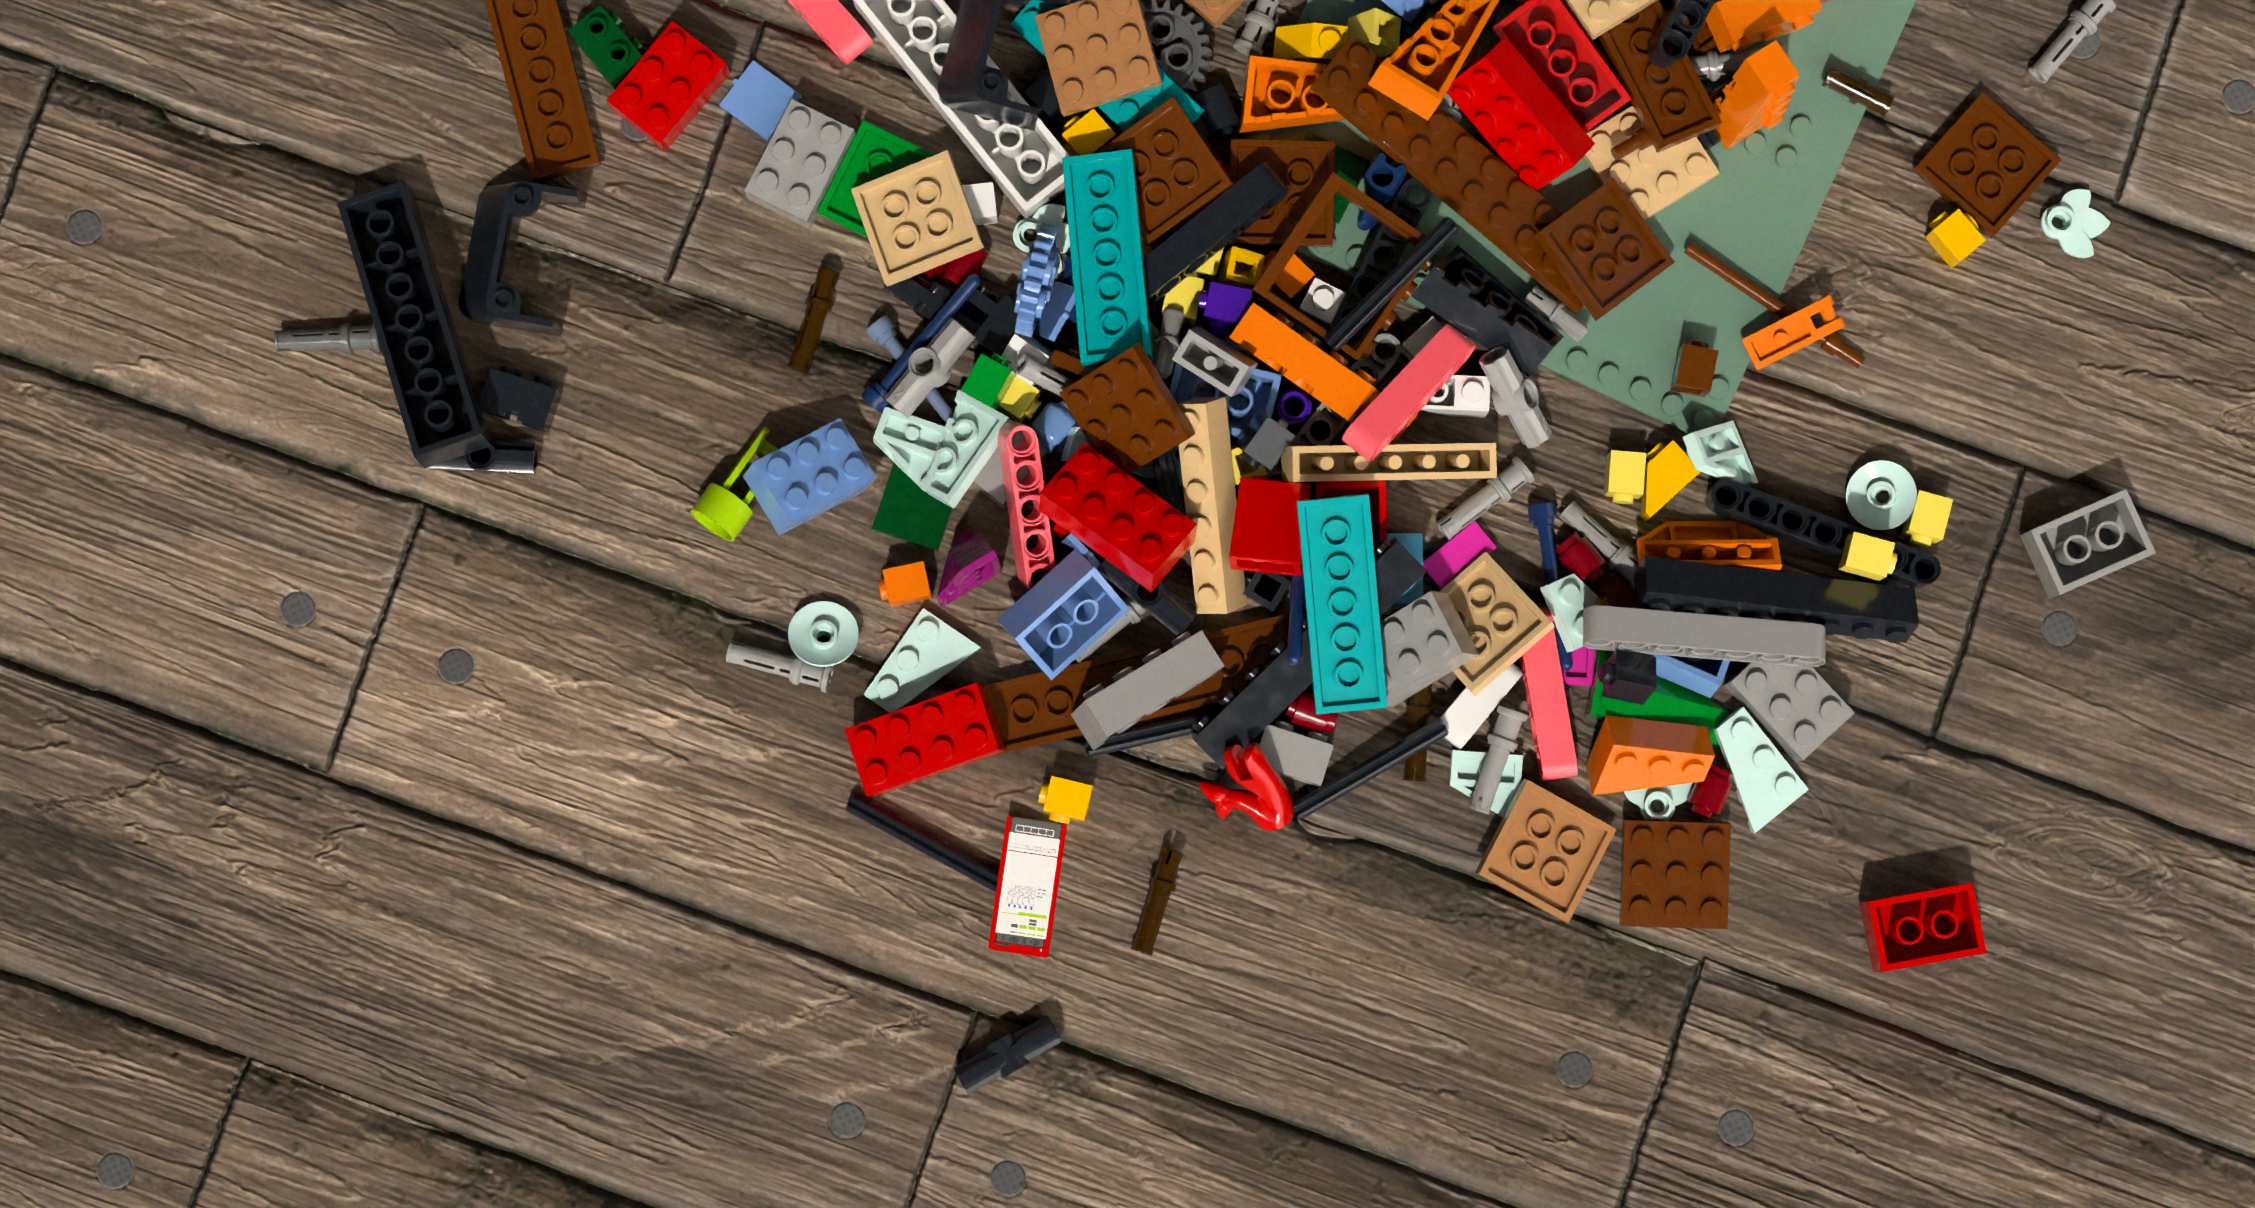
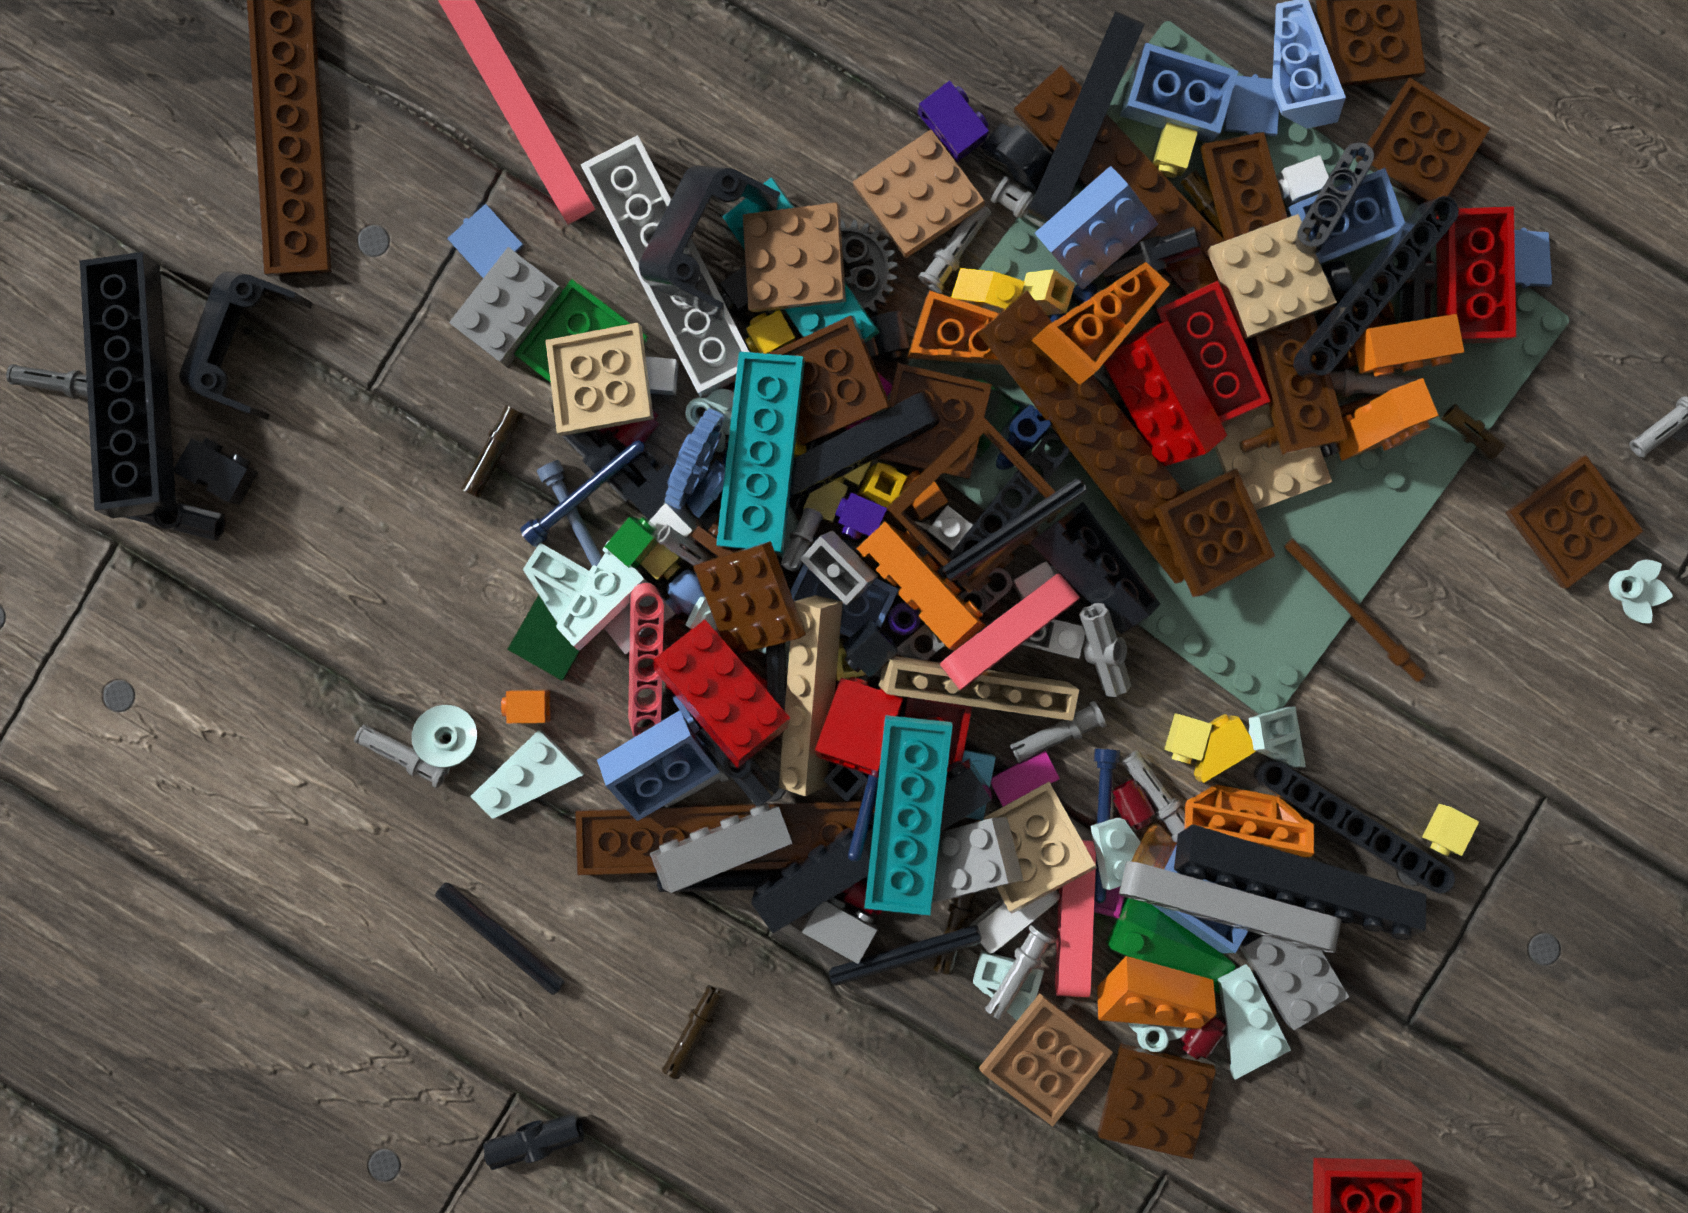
camera: 15 degrees right, 5 degrees up
(606, 45) = (356, 166): dark green brick -> none
(668, 86) = (402, 213): red brick -> none
(722, 510) = (375, 609): lime piece -> none
(809, 476) = (456, 594): medium blue brick -> none
(915, 382) = (571, 528): light grey piece -> none
(925, 739) = (514, 851): red brick -> none
(967, 567) = (583, 701): magenta wedge -> none
(1027, 887) = (581, 995): sticker -> none
(1065, 799) = (630, 926): yellow brick -> none
(1269, 798) = (799, 957): red piece -> none
(1557, 314) = (1158, 580): light grey axle -> none
(1628, 677) = (1154, 928): black brick -> none
(1694, 369) = (1271, 655): reddish brown brick -> none
(1792, 332) = (1367, 640): orange plate -> none
(1868, 556) = (1392, 861): light yellow brick -> none
(1878, 477) = (1414, 820): light aqua dish -> none
(1954, 236) = (1531, 582): yellow brick -> none
(2087, 544) = (1590, 885): light grey brick -> none

